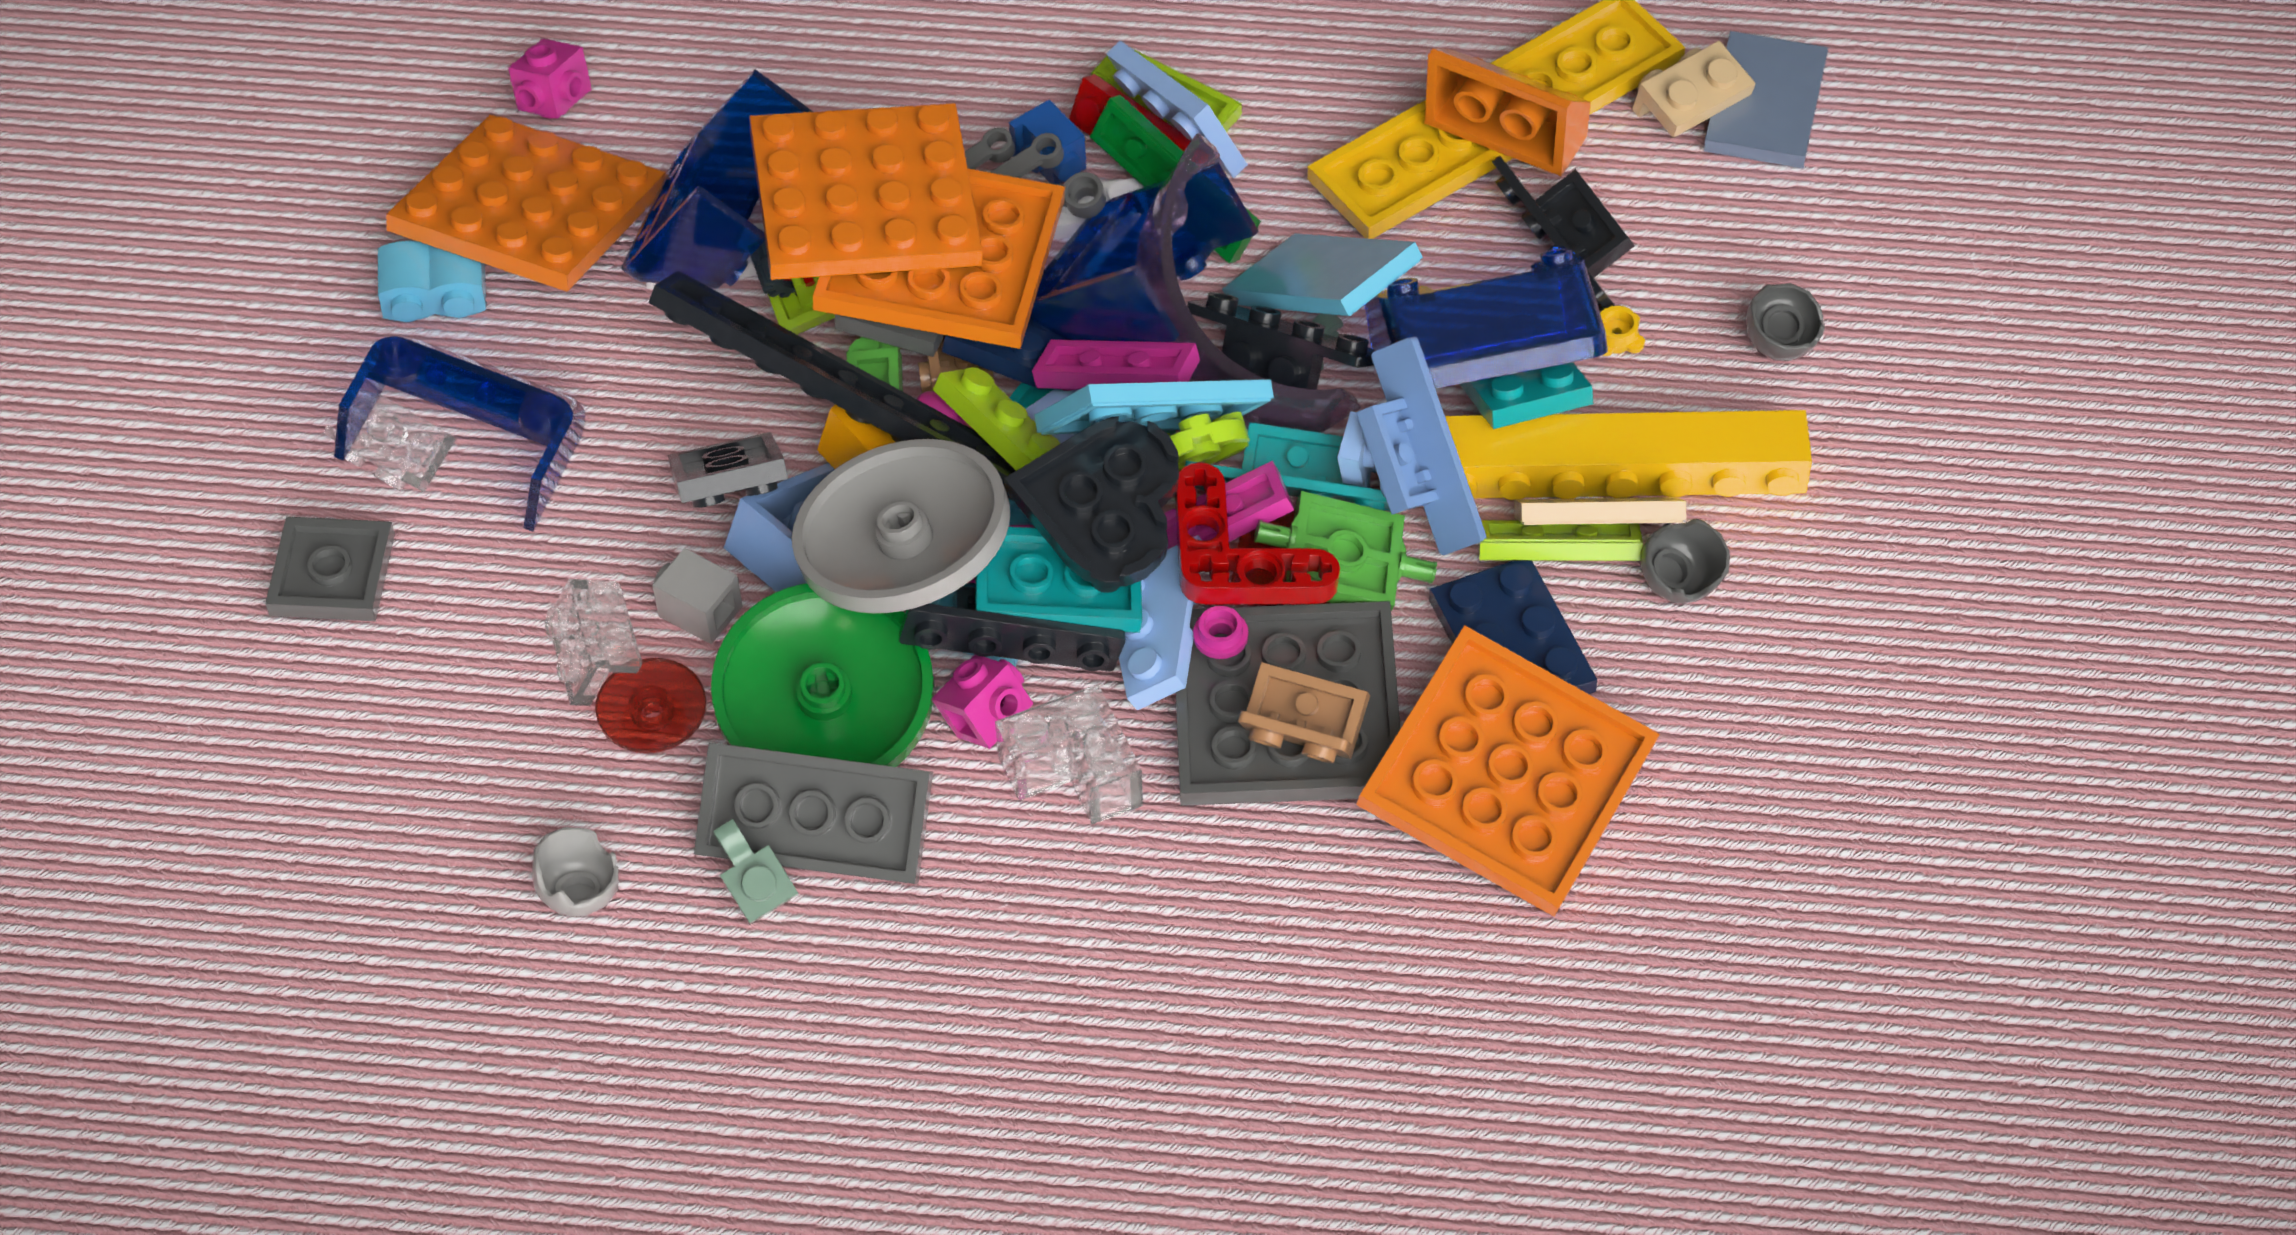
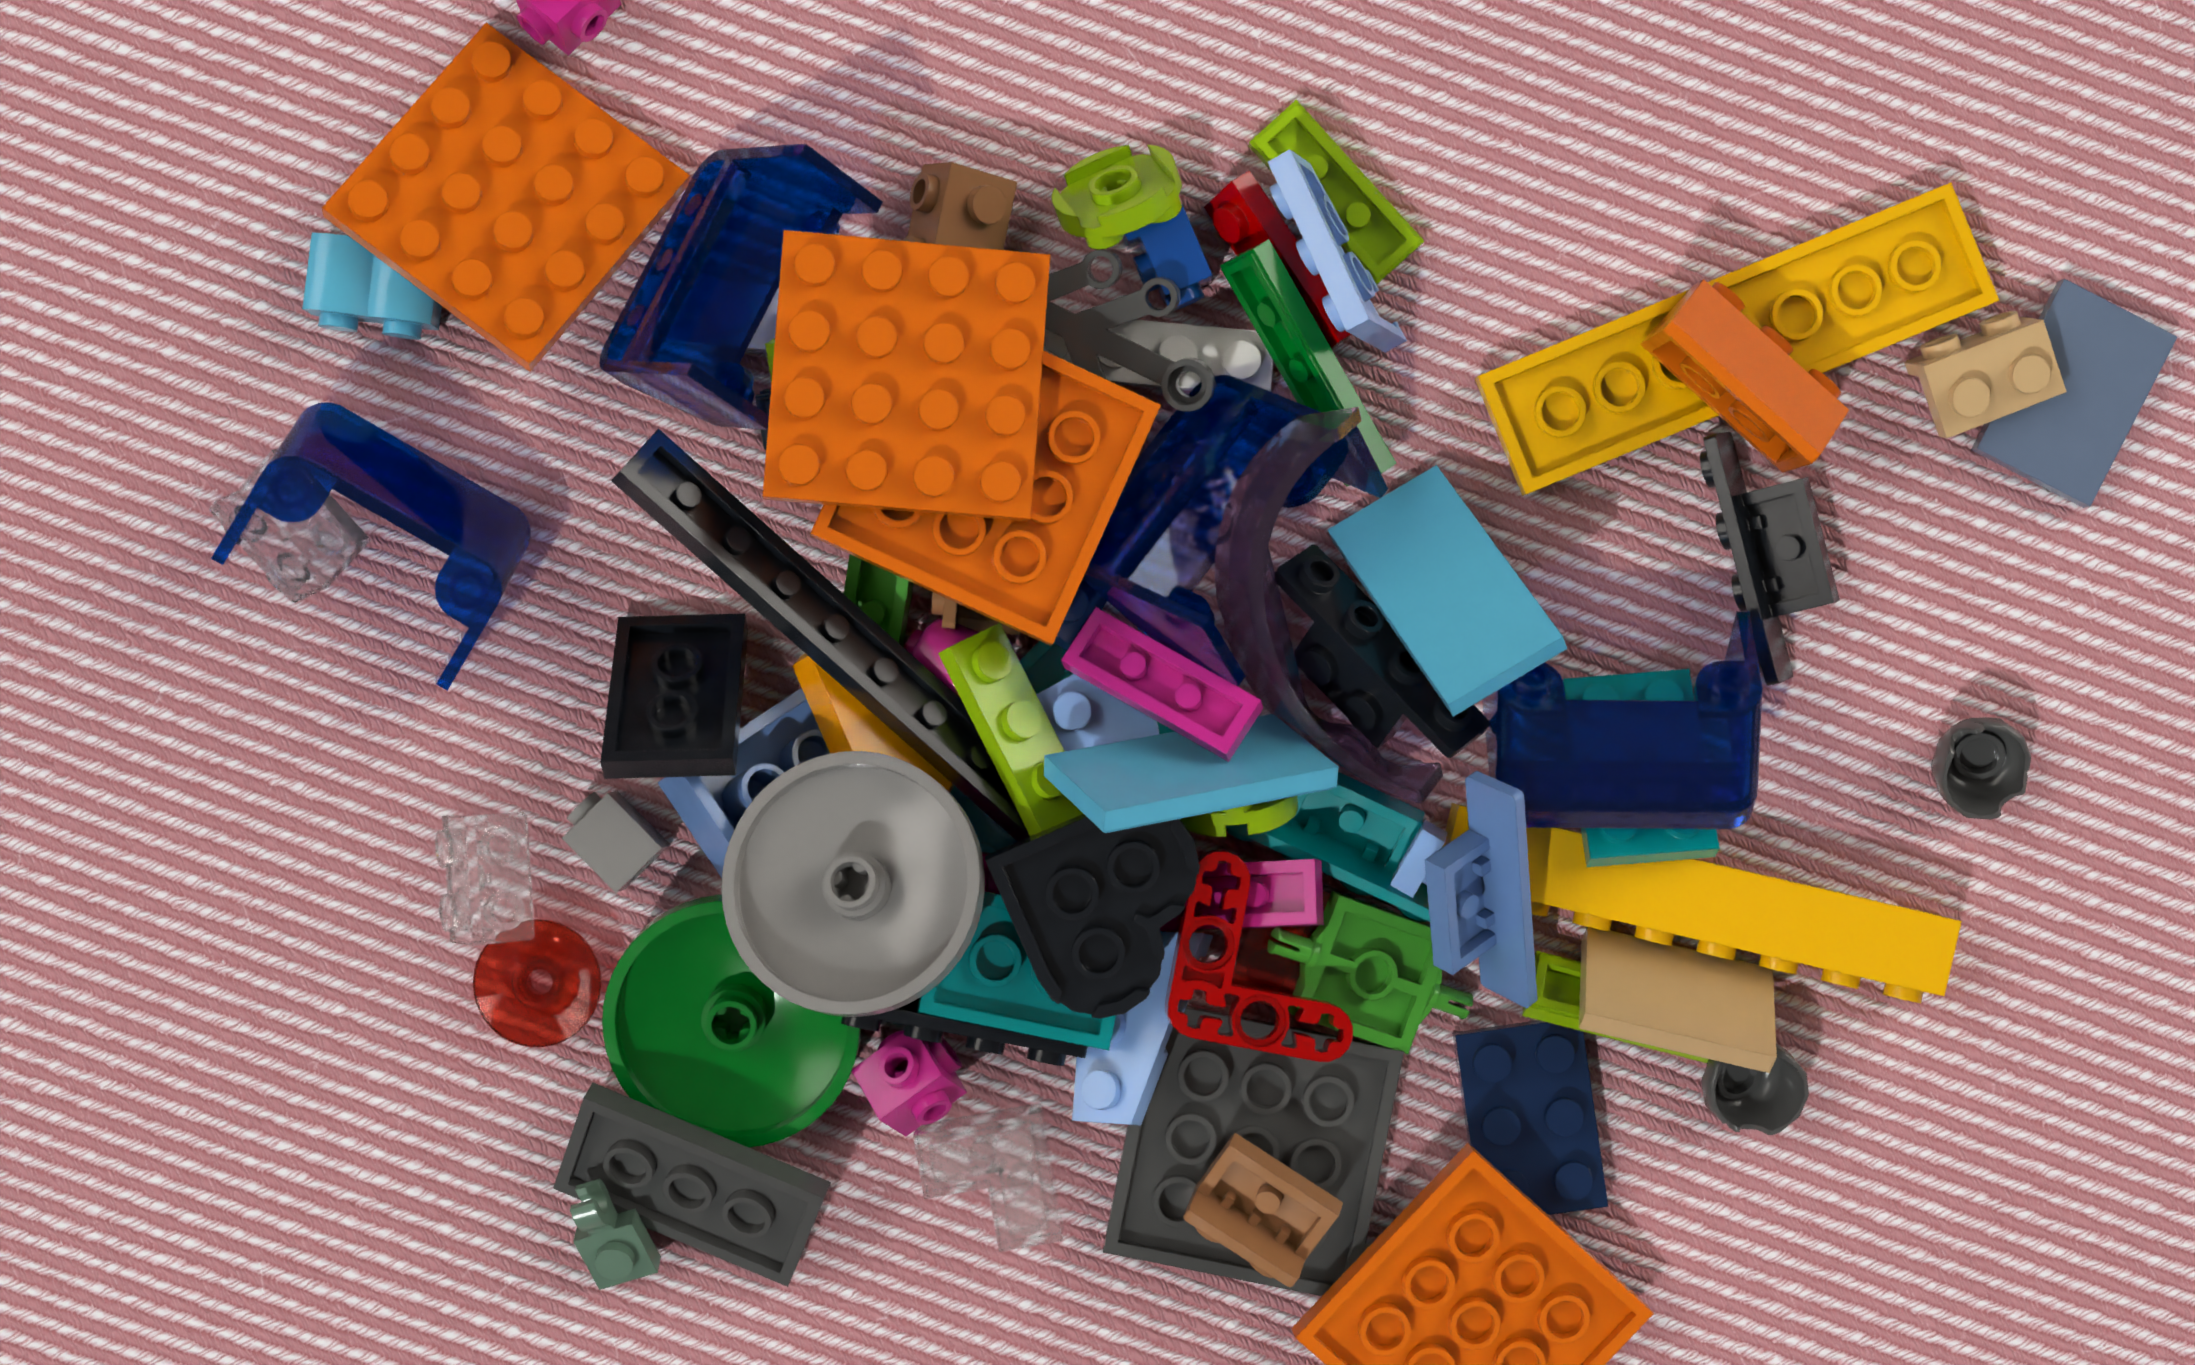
camera: 10 degrees right, 35 degrees up
(330, 569) = (200, 691): dark grey plate -> none
(574, 872) = (416, 1193): light grey hair -> none
(1002, 107) = (1118, 194): none -> lime plate
(1220, 621) = (1192, 1083): dark pink plate -> none
(1625, 323) = (1796, 708): yellow plate -> none

